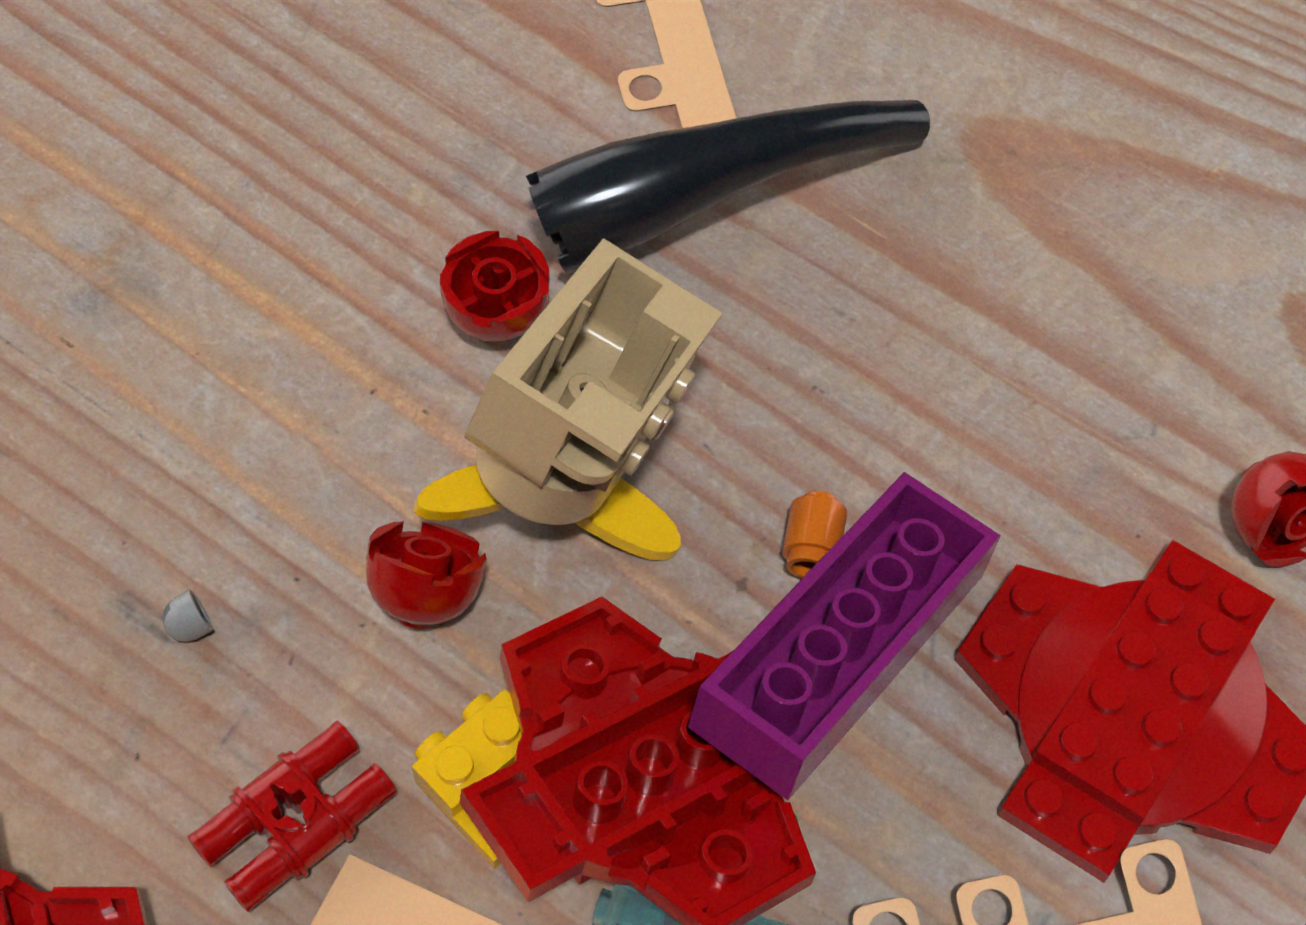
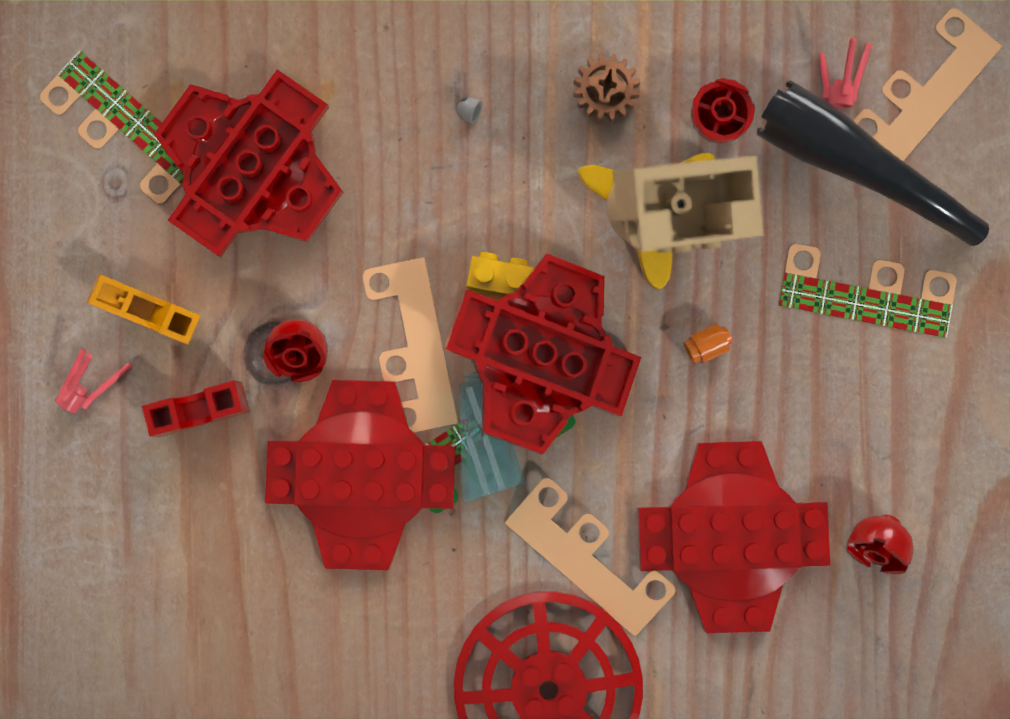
camera: 60 degrees right, 25 degrees up
(292, 845) = (411, 209): red pin -> none
(320, 431) = (618, 89): none -> nougat gear
(423, 574) = (558, 192): red cylinder -> none
(585, 138) = (842, 92): none -> coral plant
(842, 635) = (663, 392): magenta brick -> none
(915, 305) = (874, 305): none -> piece

